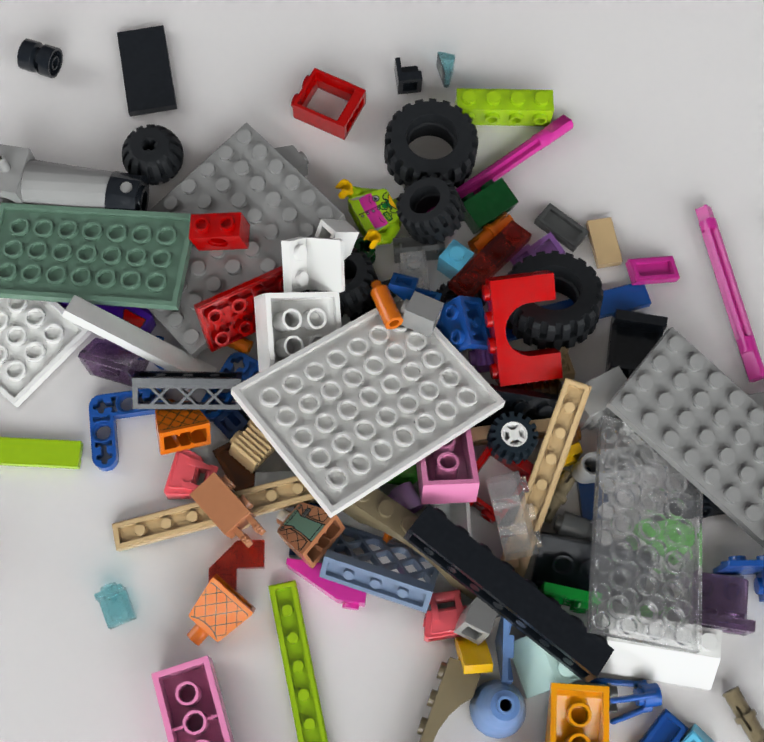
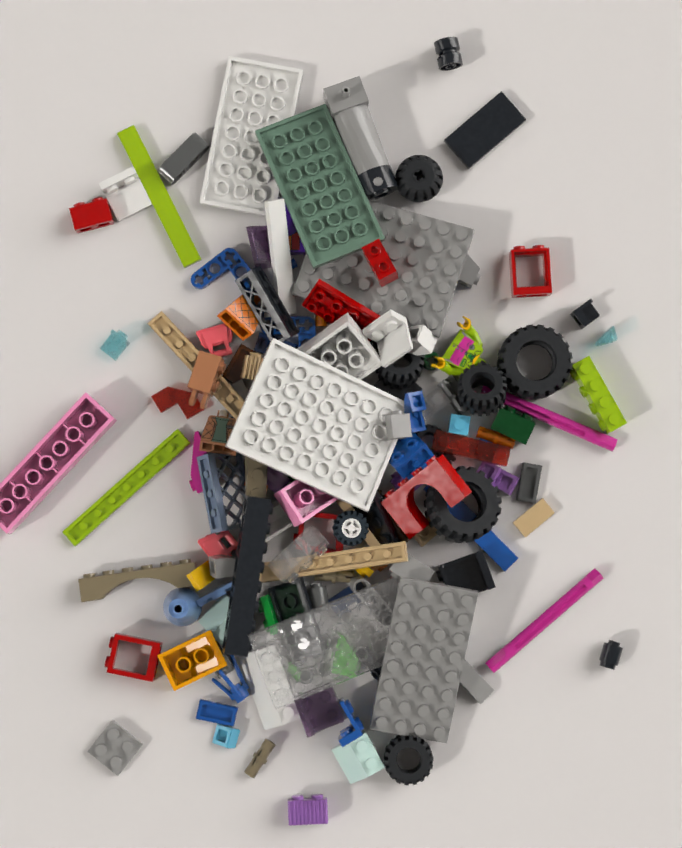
camera: 60 degrees right, 15 degrees up
(218, 611) = (144, 408): orange torso -> none
(385, 305) = (391, 399): orange cylinder -> none
(652, 270) = (529, 560): dark pink tile -> none

